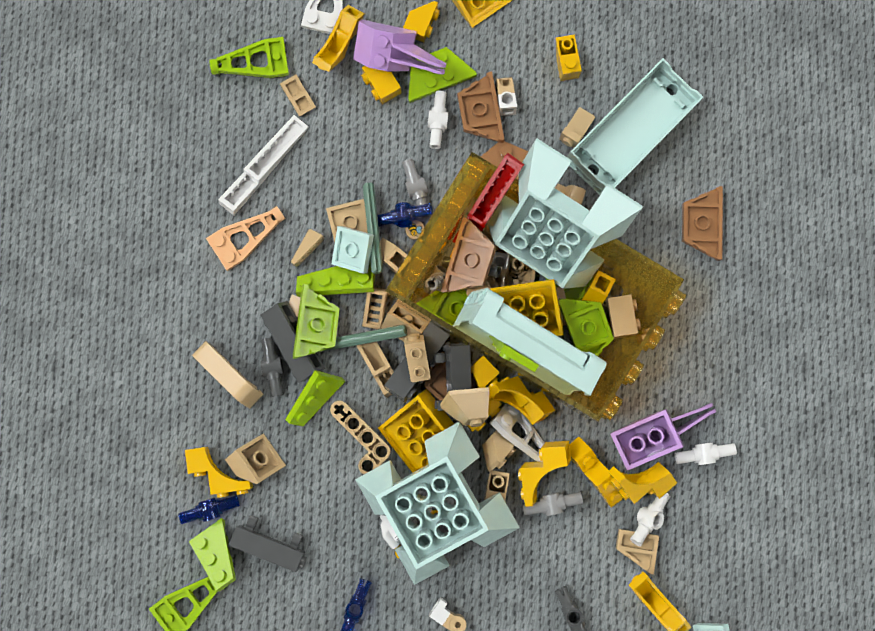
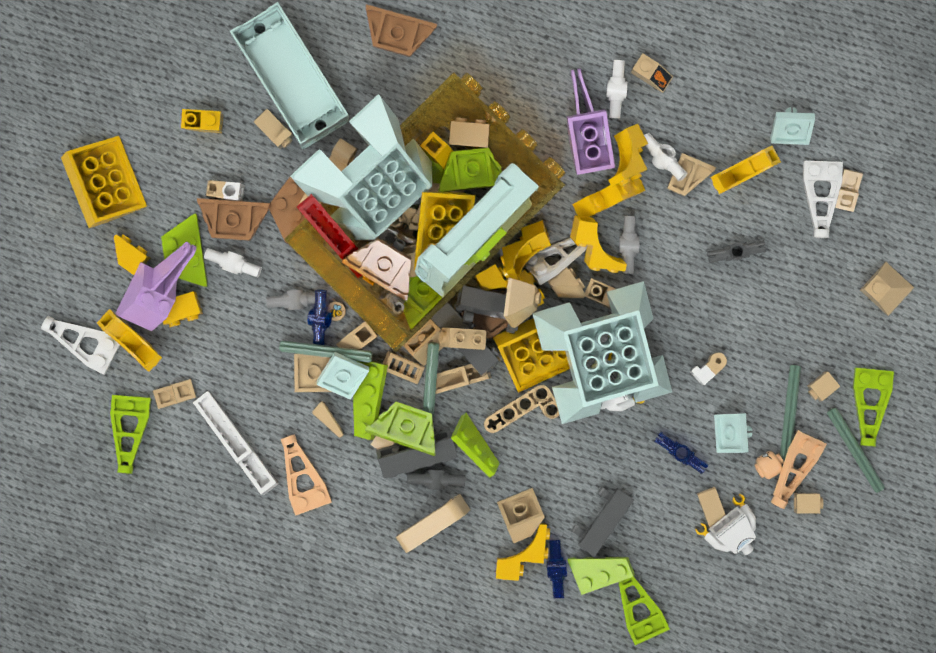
camera: 75 degrees left, 5 degrees up
(731, 485) = (652, 73): none -> tan slope

